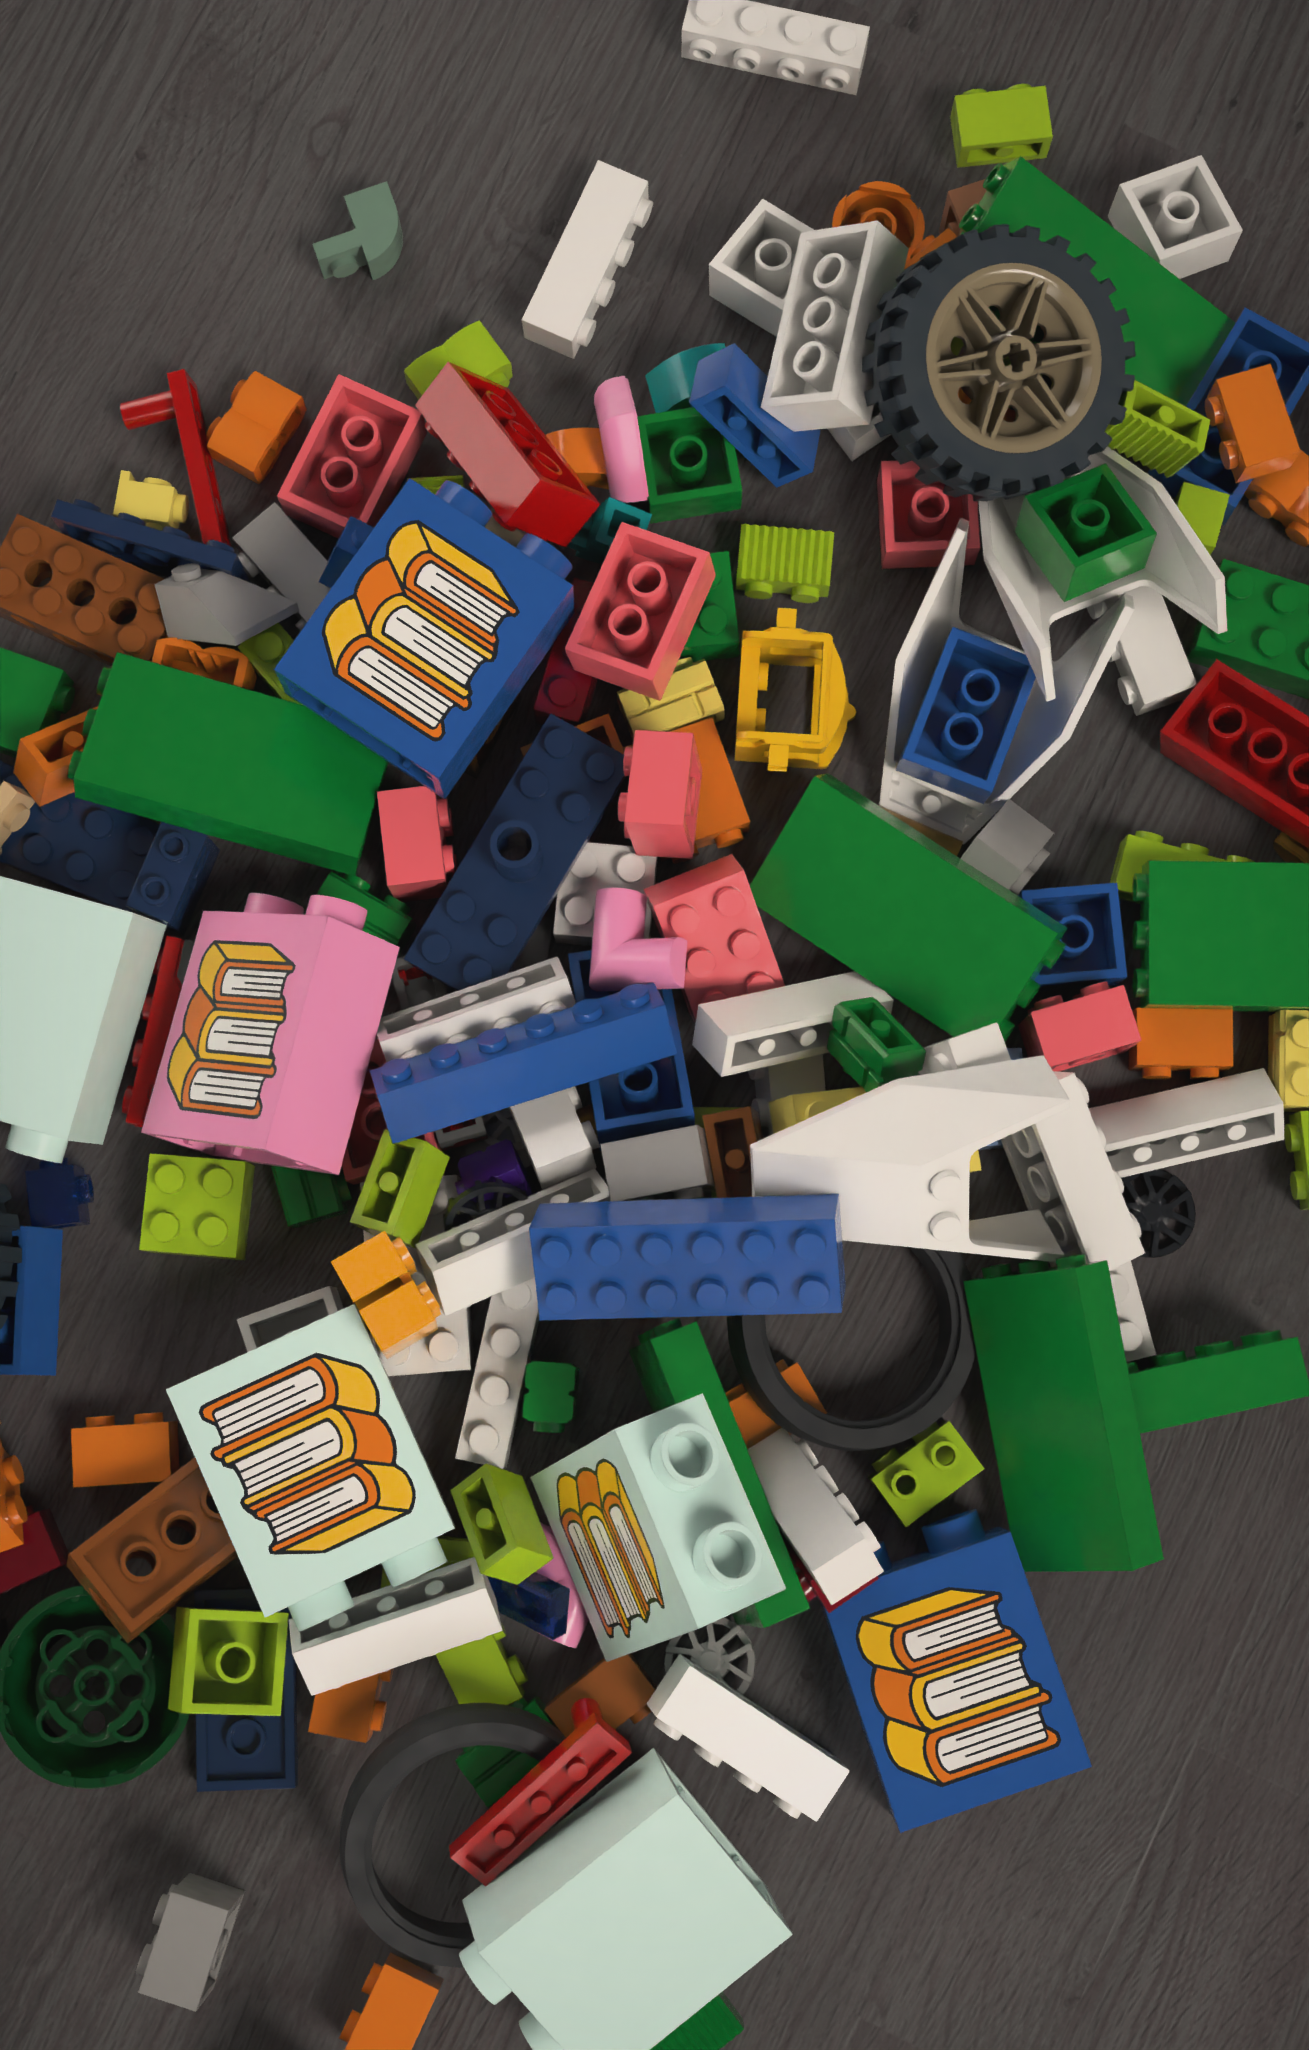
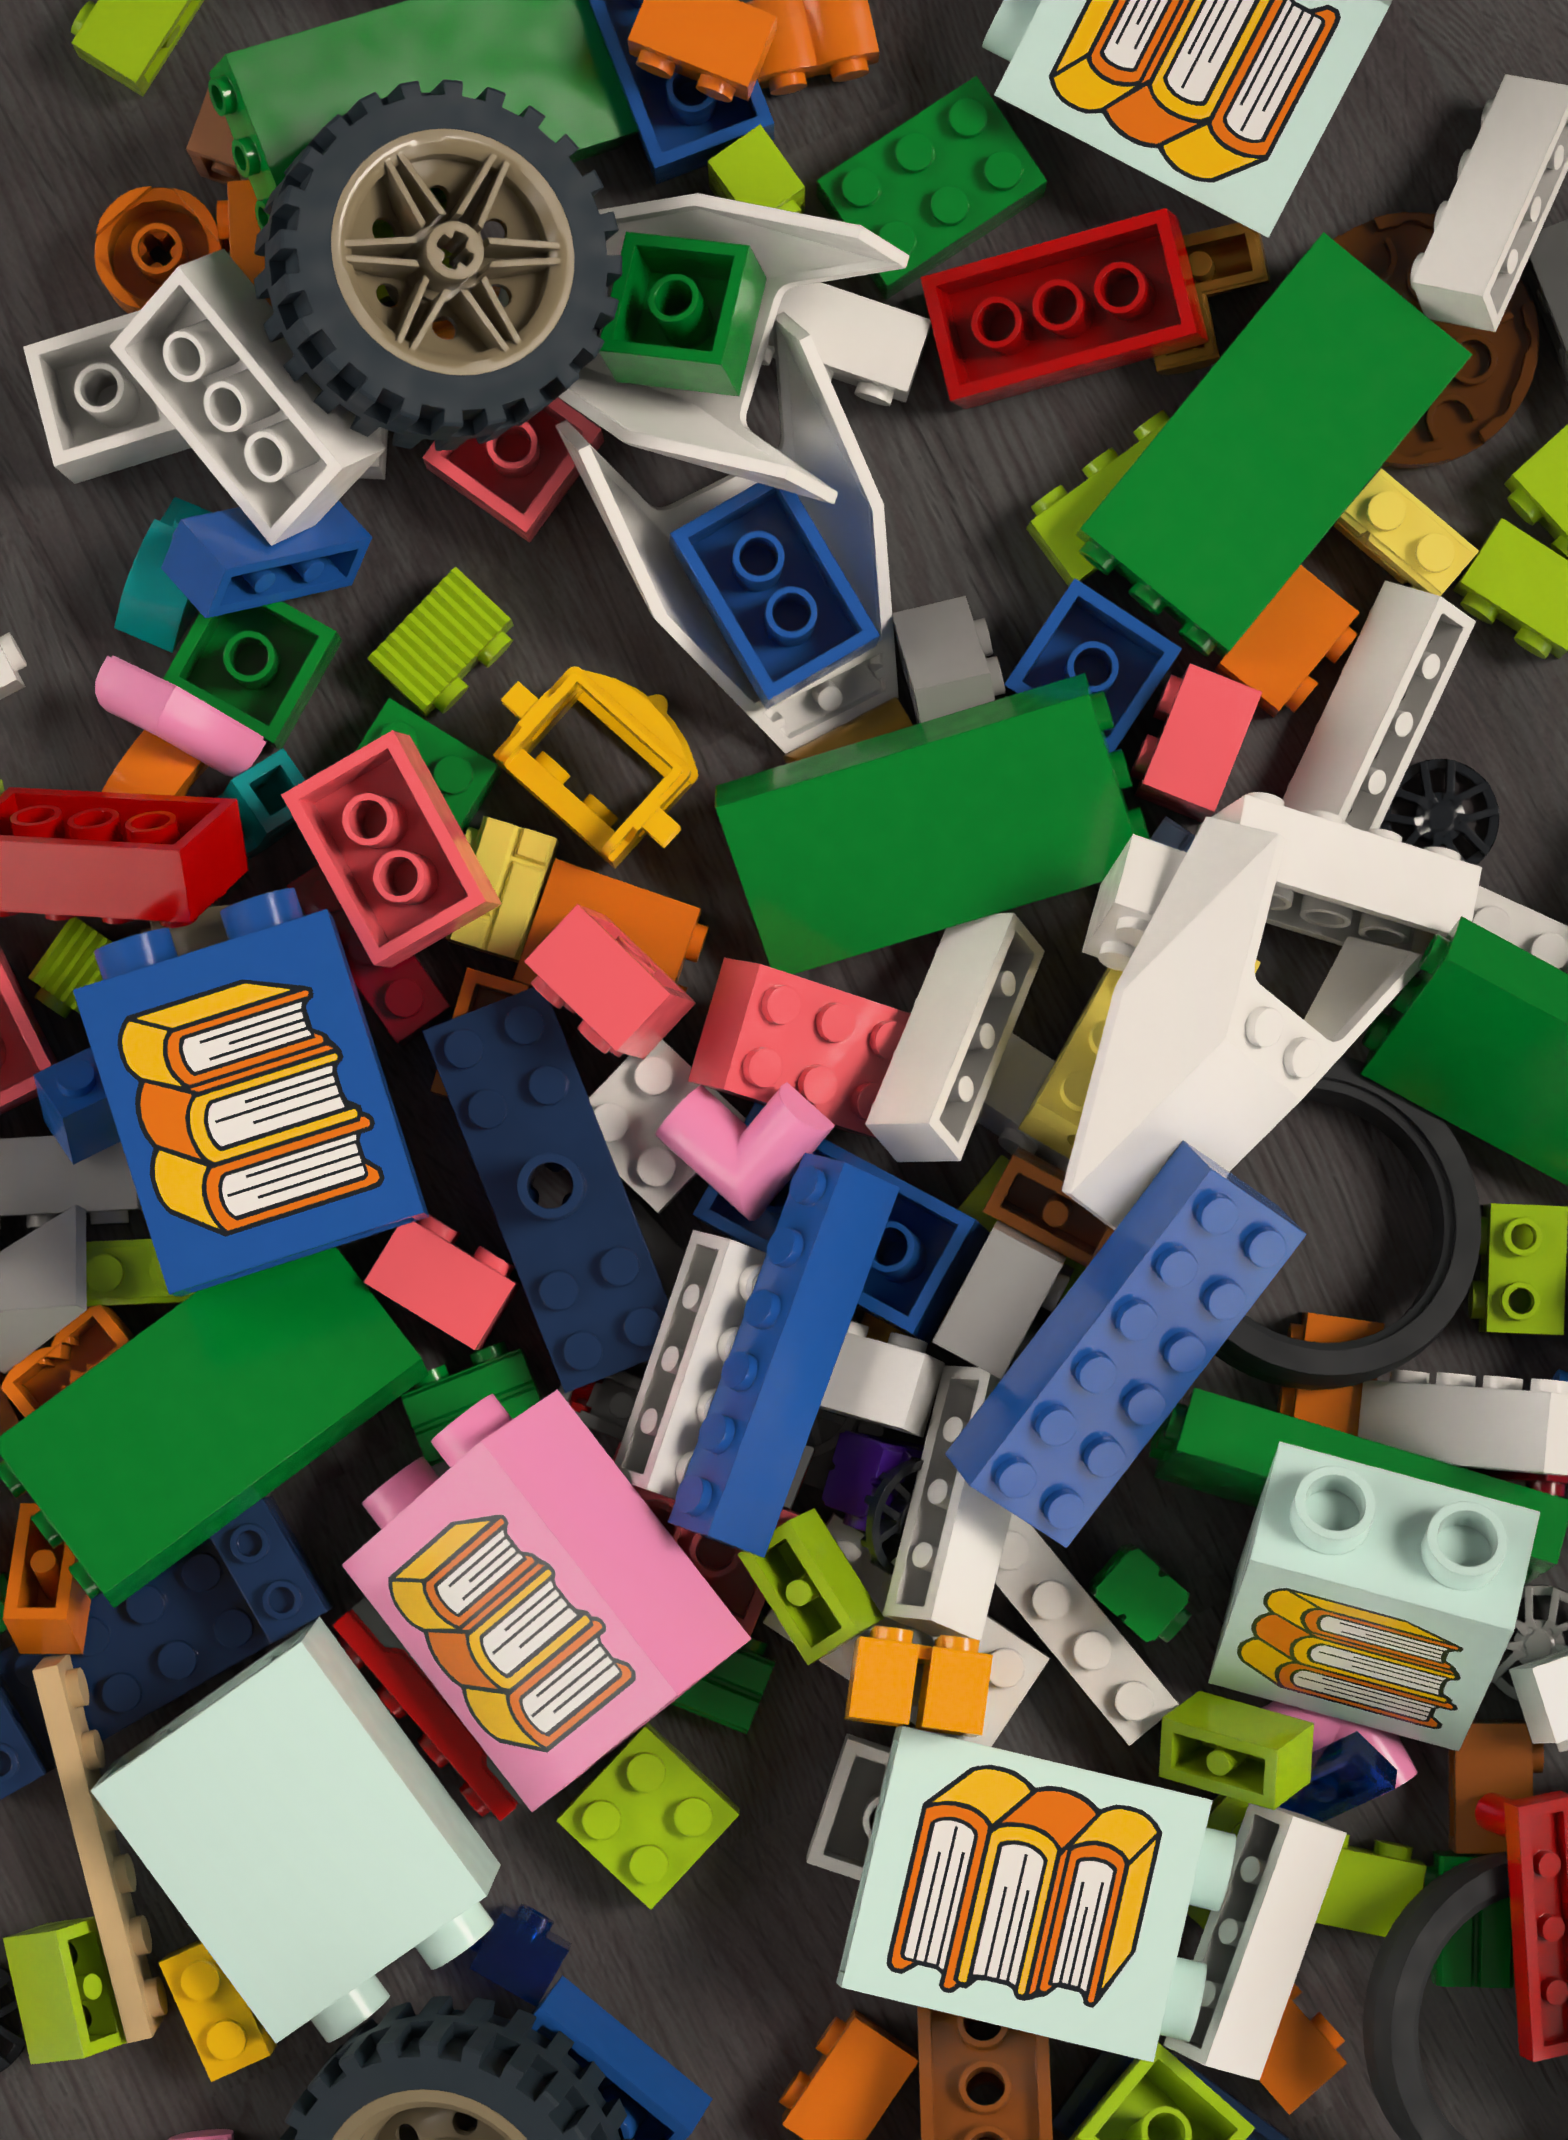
camera: 55 degrees left, 5 degrees up
(872, 1044) = (1052, 976): green brick -> none
(1158, 430) = (635, 144): lime brick -> none

